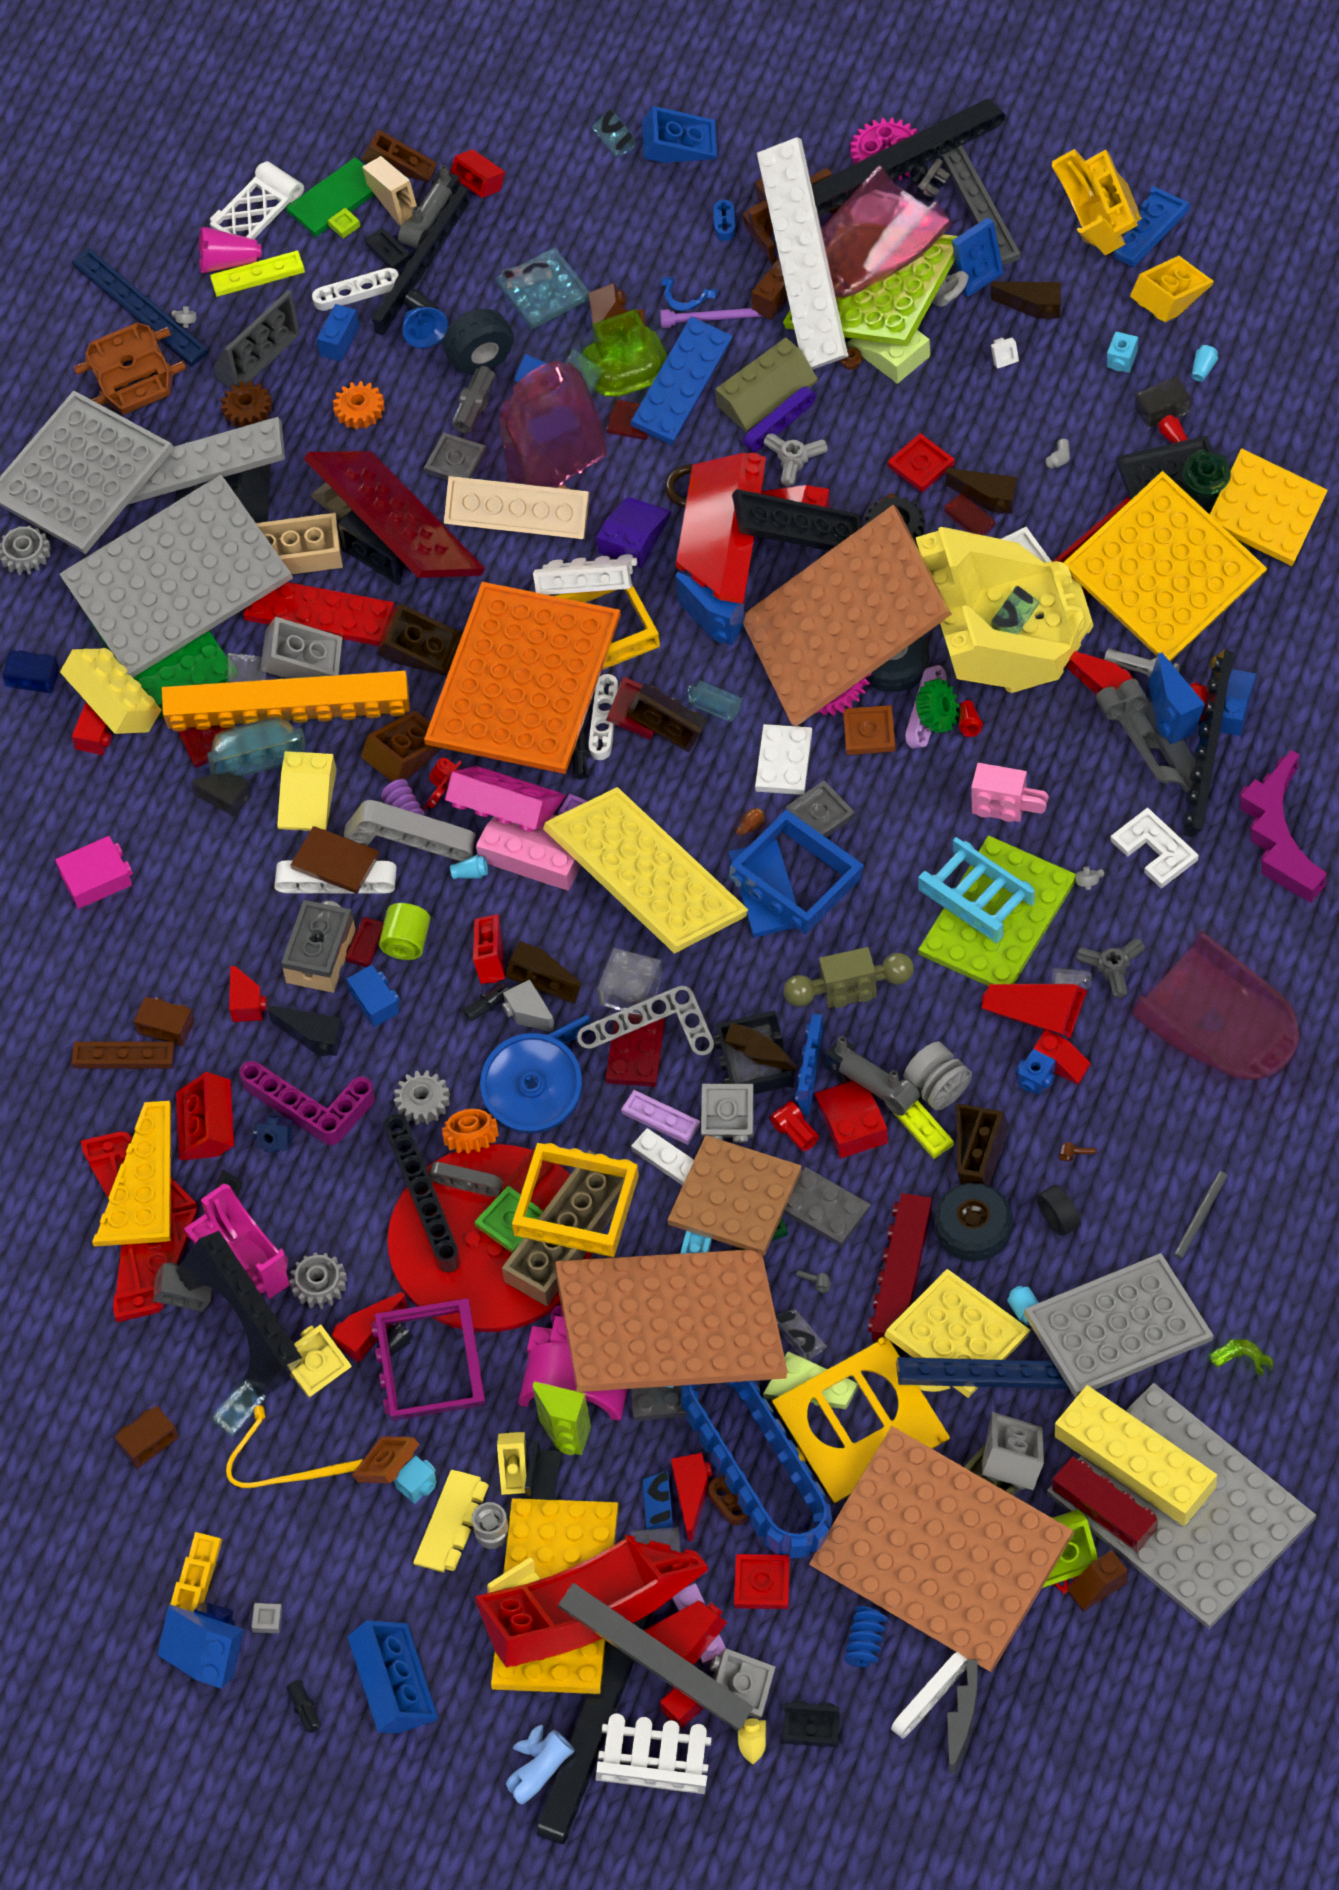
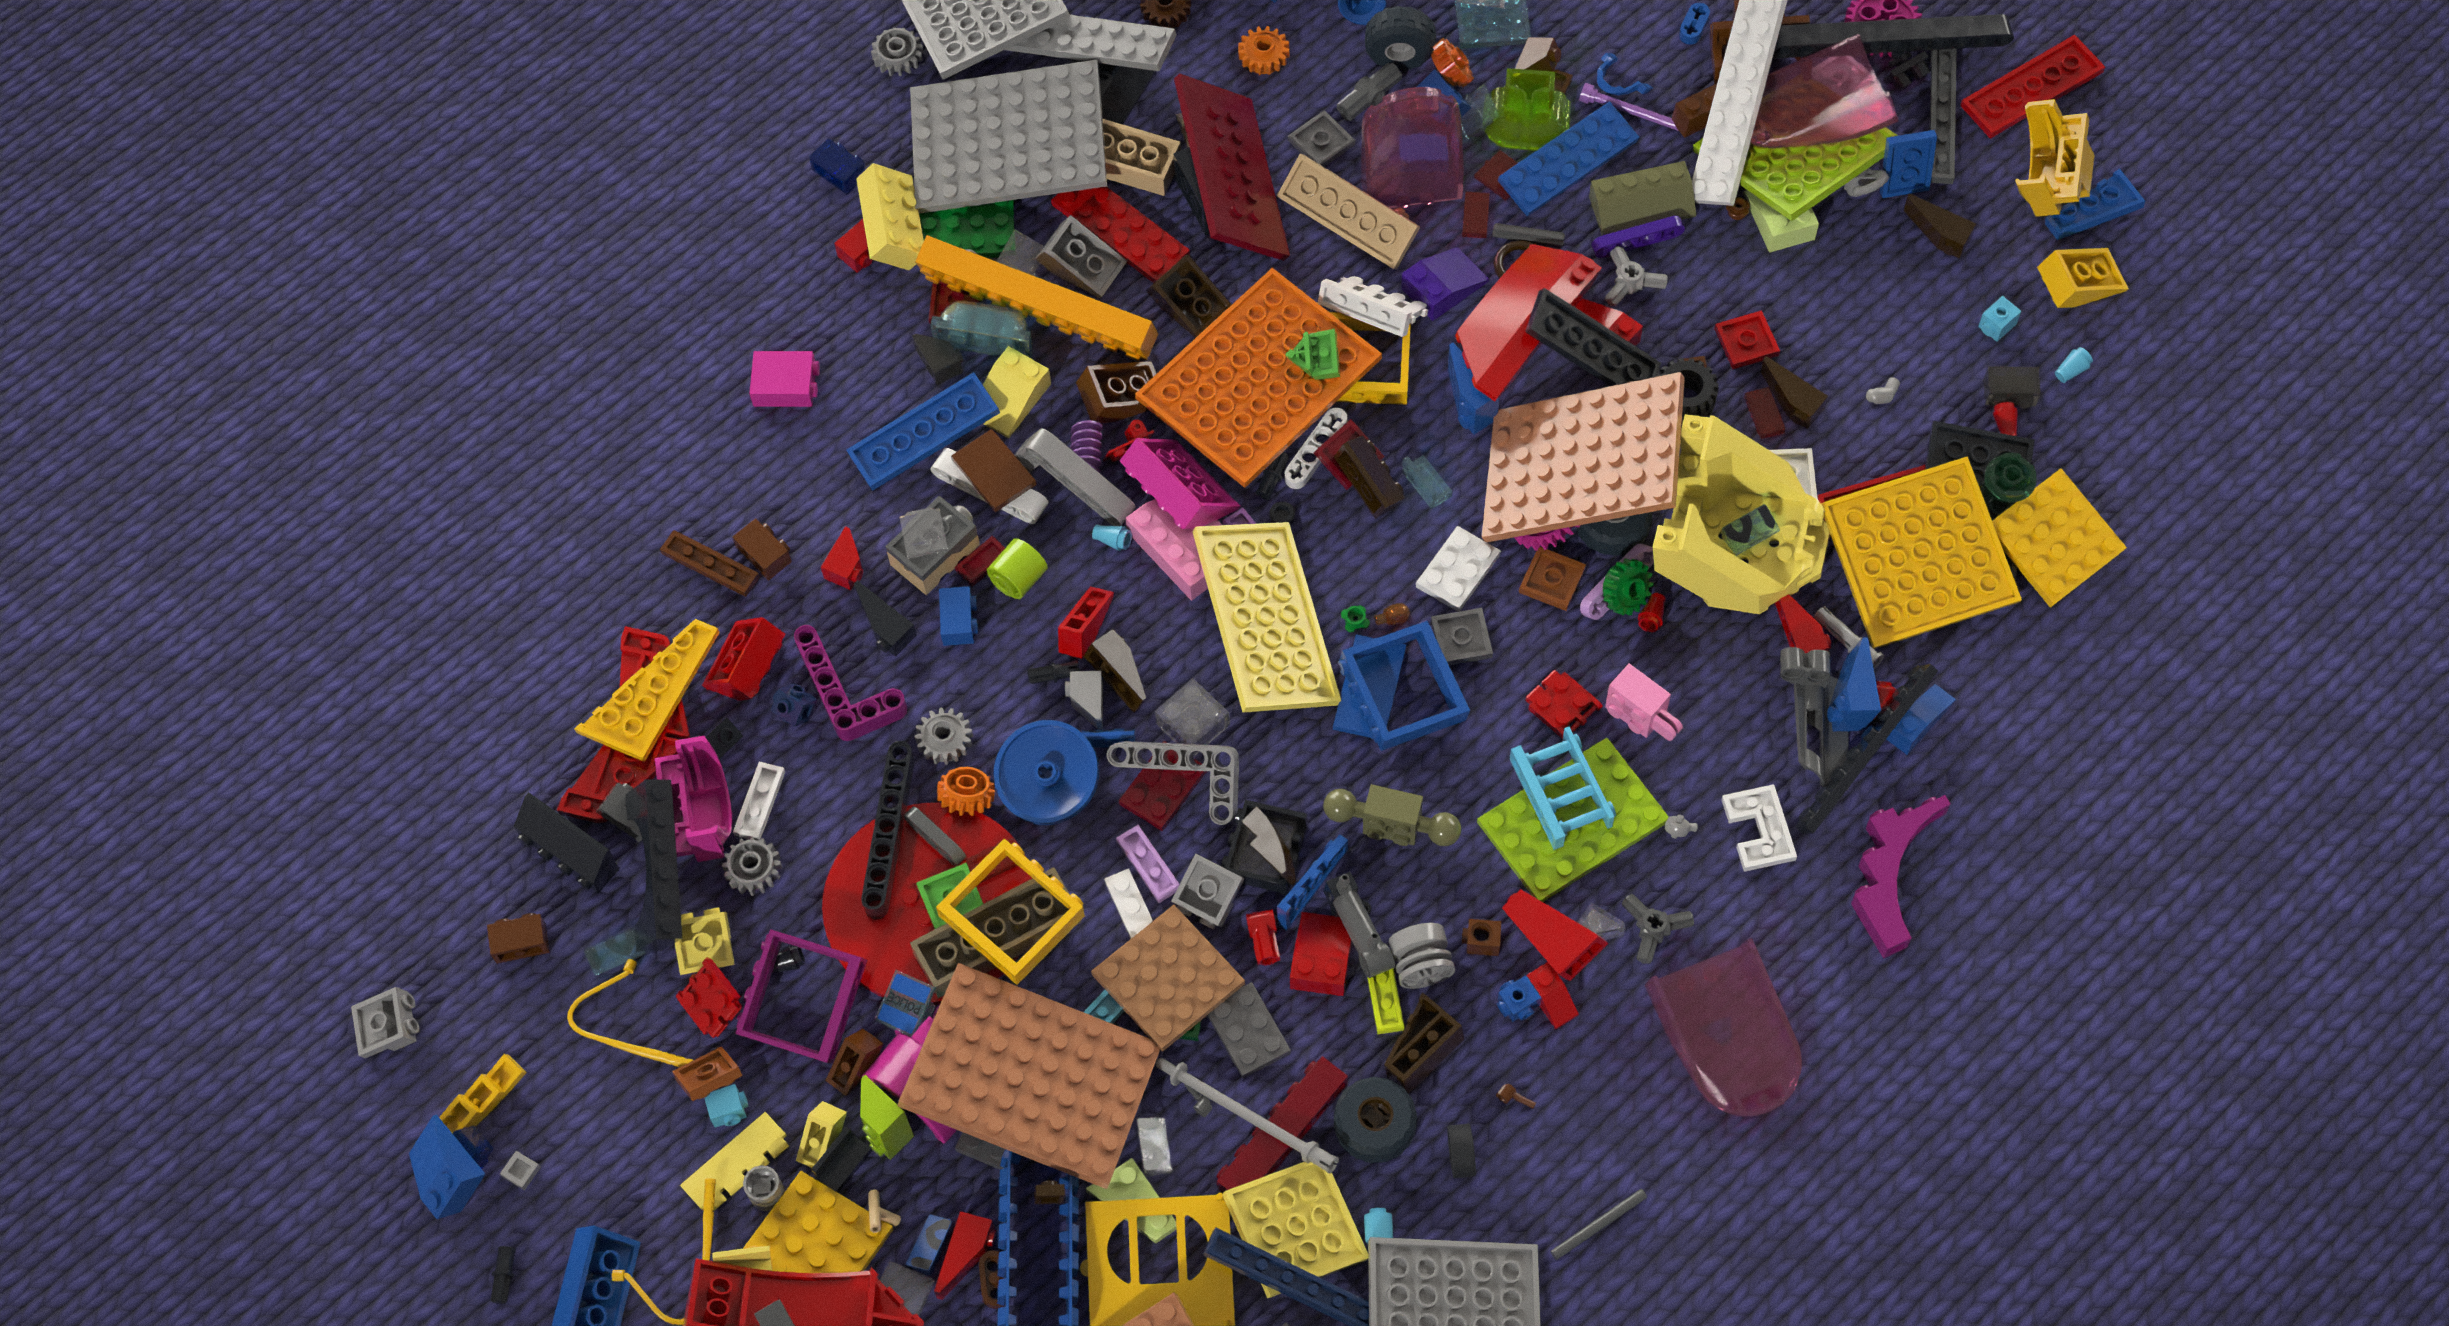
camera: 25 degrees right, 5 degrees up
(70, 1560) = (384, 1022): none -> light grey plate
(141, 1339) = (564, 844): none -> black slope
(249, 858) = (923, 431): none -> blue plate
(291, 1225) = (759, 801): none -> white plate
(308, 935) = (923, 532): none -> clear piece
(350, 1401) = (710, 999): none -> red plate
(355, 1333) = (753, 930): red slope -> none
(464, 1587) = (708, 1217): none -> yellow piece
(504, 1391) = (852, 1060): none -> reddish brown slope
(525, 1320) = (906, 1003): none -> piece
(535, 343) = (1452, 63): none -> orange gear
(565, 635) = (1317, 354): none -> bright green slope
(603, 1499) = (877, 1213): none -> tan piece
(605, 782) = (1282, 512): none -> black tile
(628, 462) = (1475, 215): none -> clear red tile
(684, 458) = (1528, 234): none -> dark grey axle
(720, 833) = (1350, 613): none -> green plate
(742, 1401) = (1049, 1193): none -> dark brown plate
(933, 825) = (1561, 702): none -> red plate
(936, 1267) = (1309, 1151): none -> light grey bar
(978, 1030) = (1490, 928): none -> reddish brown brick
(1004, 352) = (1885, 267): white tile -> none
(1047, 139) = (2040, 79): none -> red plate

